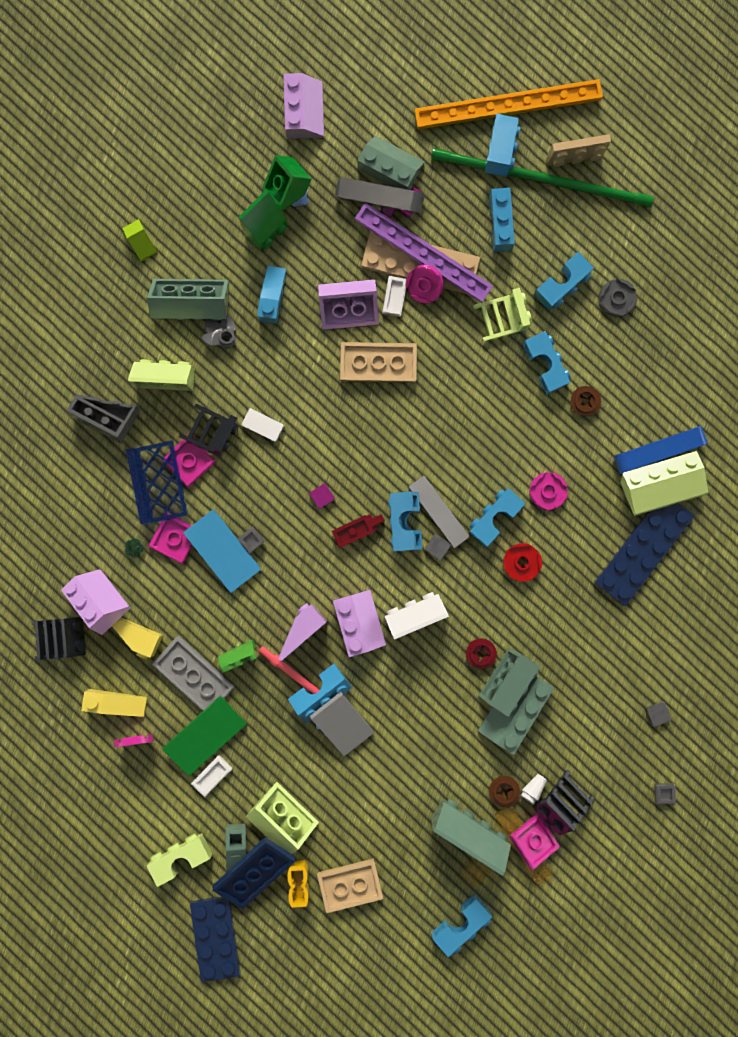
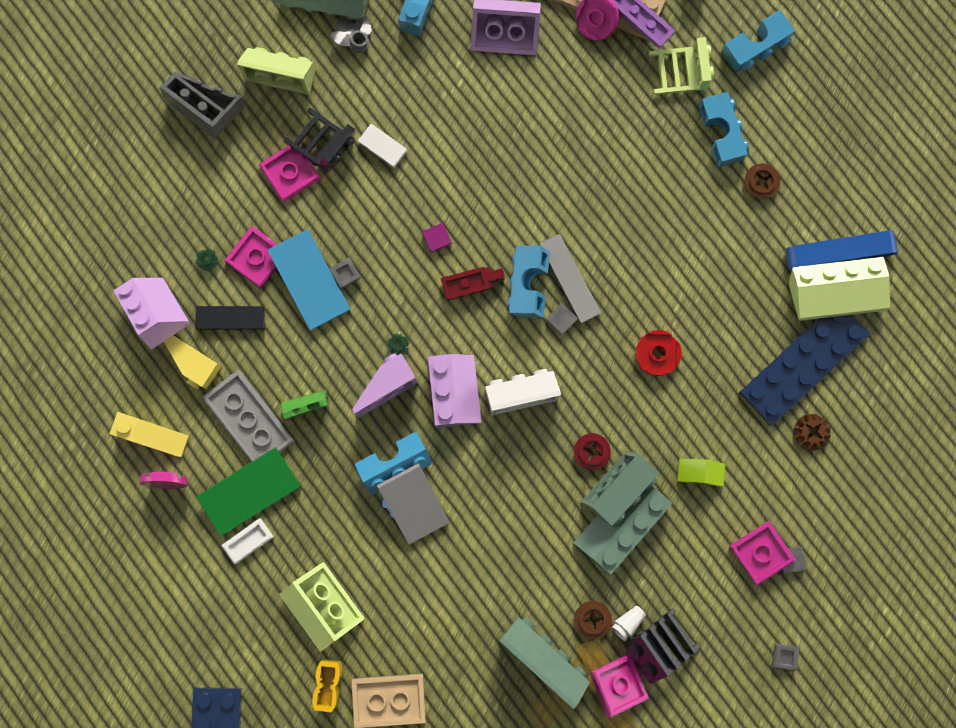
camera: 10 degrees right, 5 degrees down
(67, 636) = (109, 351): black plate -> none
(140, 486) = (228, 192): clear blue fence -> none
(162, 593) = (230, 318): none -> black tile
(163, 865) = (170, 637): yellowish green arch -> none
(235, 844) = (258, 638): sand green slope -> none
(253, 873) = (276, 662): dark blue plate -> none
(274, 661) = (348, 418): coral bar -> none
(305, 597) = (404, 342): none -> clear green plate
(378, 362) = (528, 97): tan plate -> none
(394, 296) = (560, 27): white tile -> none
(506, 503) = (650, 281): dark azure arch -> none
(548, 491) = (702, 277): dark pink tile -> none
(573, 655) = (701, 472): none -> lime slope
(617, 297) = (818, 71): dark grey tile -> none
(633, 713) = (762, 553): none -> dark pink tile
(650, 607) = (801, 432): none -> reddish brown gear

